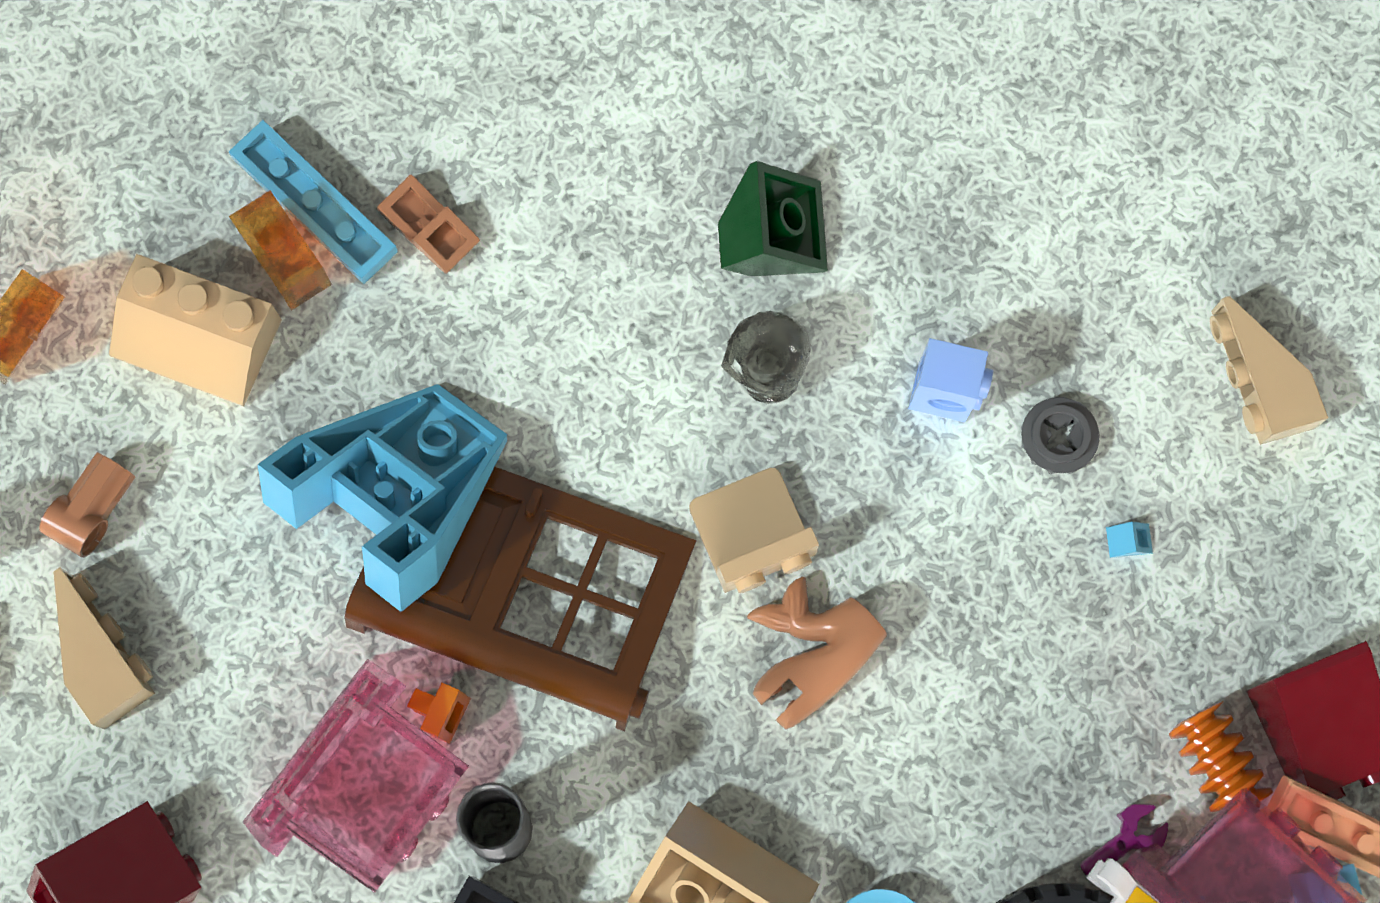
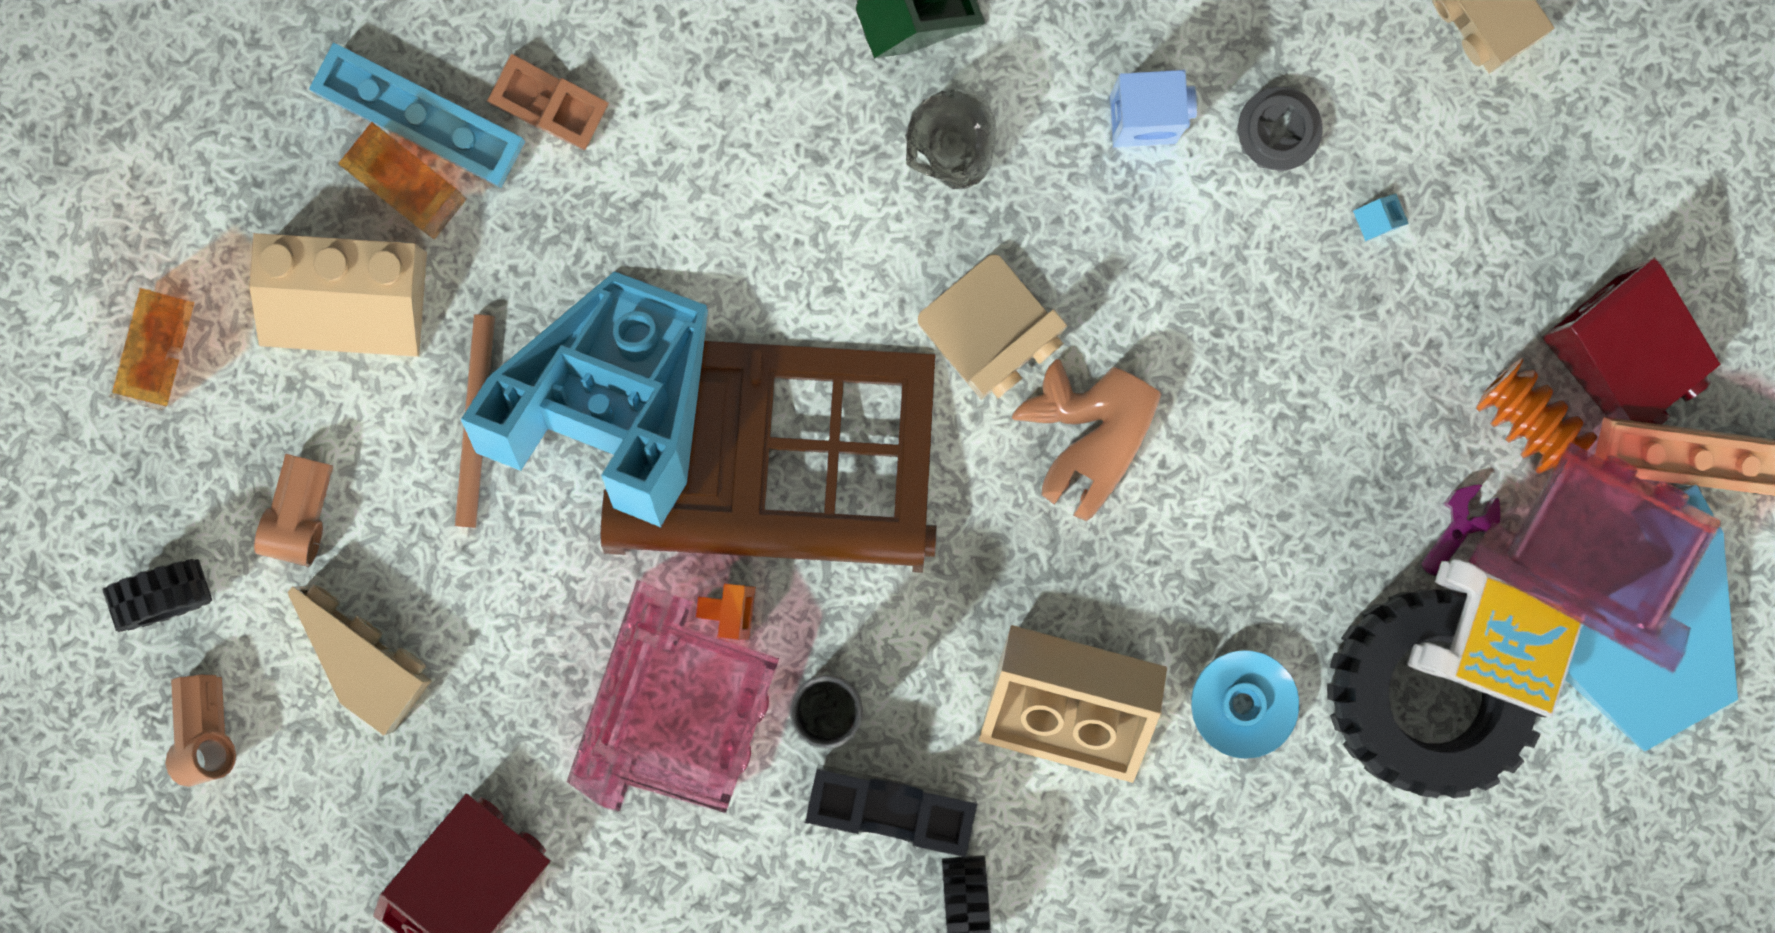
camera: 15 degrees left, 10 degrees up
(256, 508) = (471, 461): none -> nougat bar

